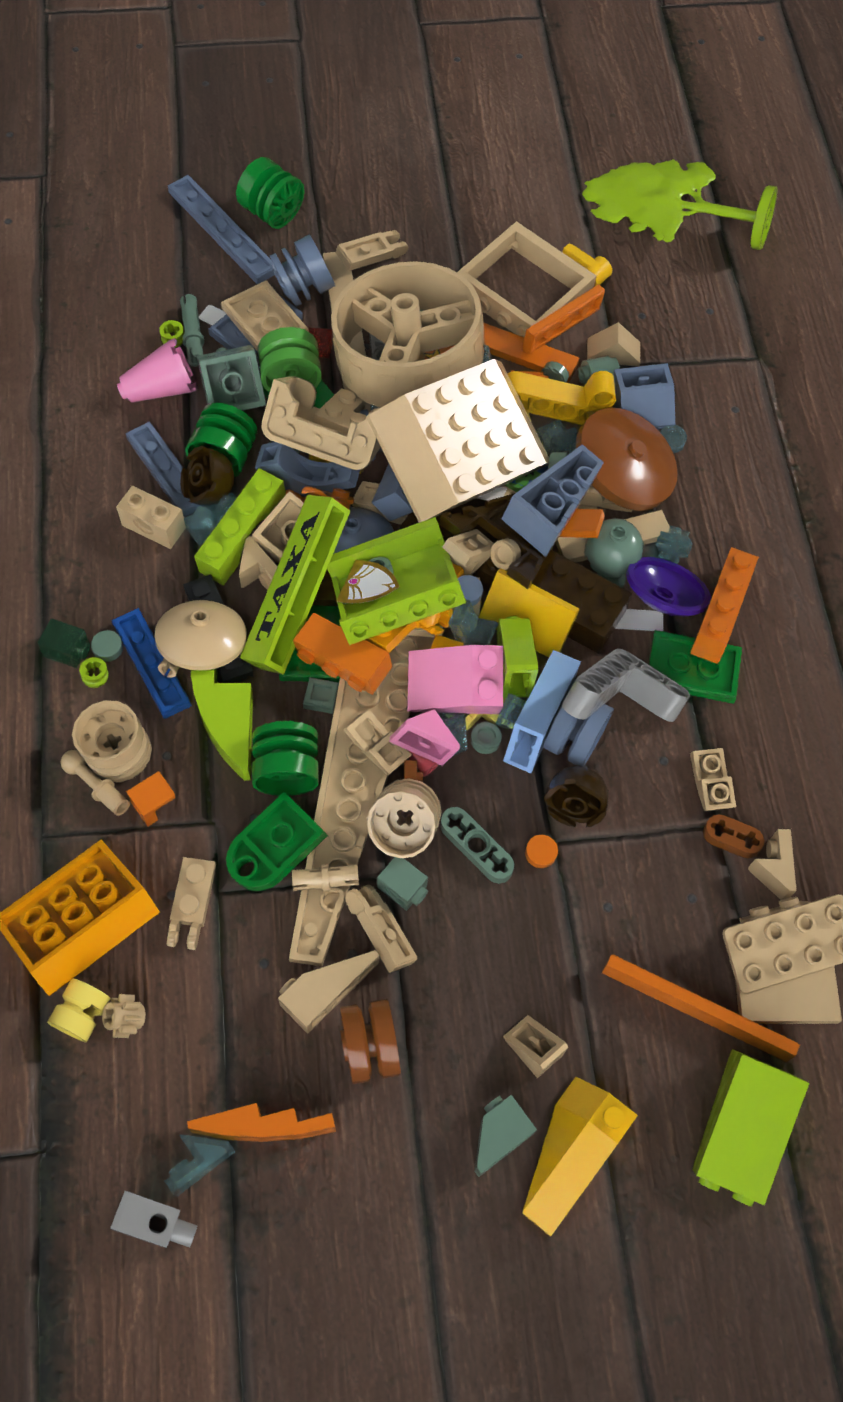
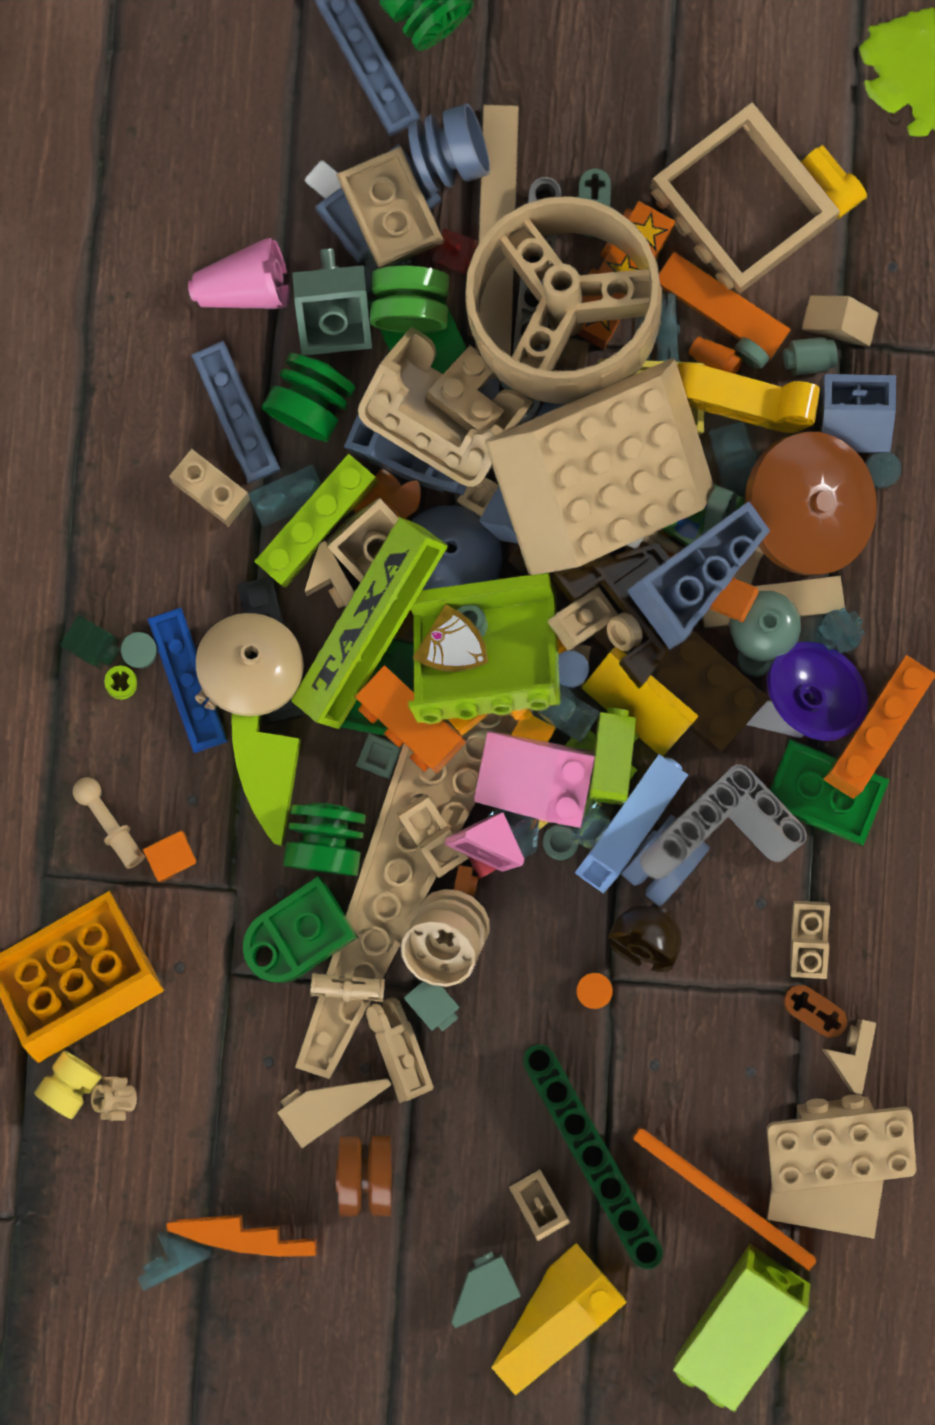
camera: 10 degrees right, 20 degrees up
(103, 729) = (116, 775): tan wheel -> none
(134, 1217) = (107, 1302): light grey torso -> none
(172, 326) = (275, 198): lime bush -> none
(191, 900) = (199, 978): tan hinge -> none
(192, 335) = (293, 217): sand green pin -> none
(207, 476) = (283, 449): dark brown cylinder -> none
(339, 495) = (435, 506): orange plate -> none
(371, 249) = (546, 114): tan hinge -> none
(499, 854) = (545, 989): sand green beam -> none
(563, 319) = (781, 271): orange tile -> none
(576, 1007) = (596, 1173): none -> dark green beam

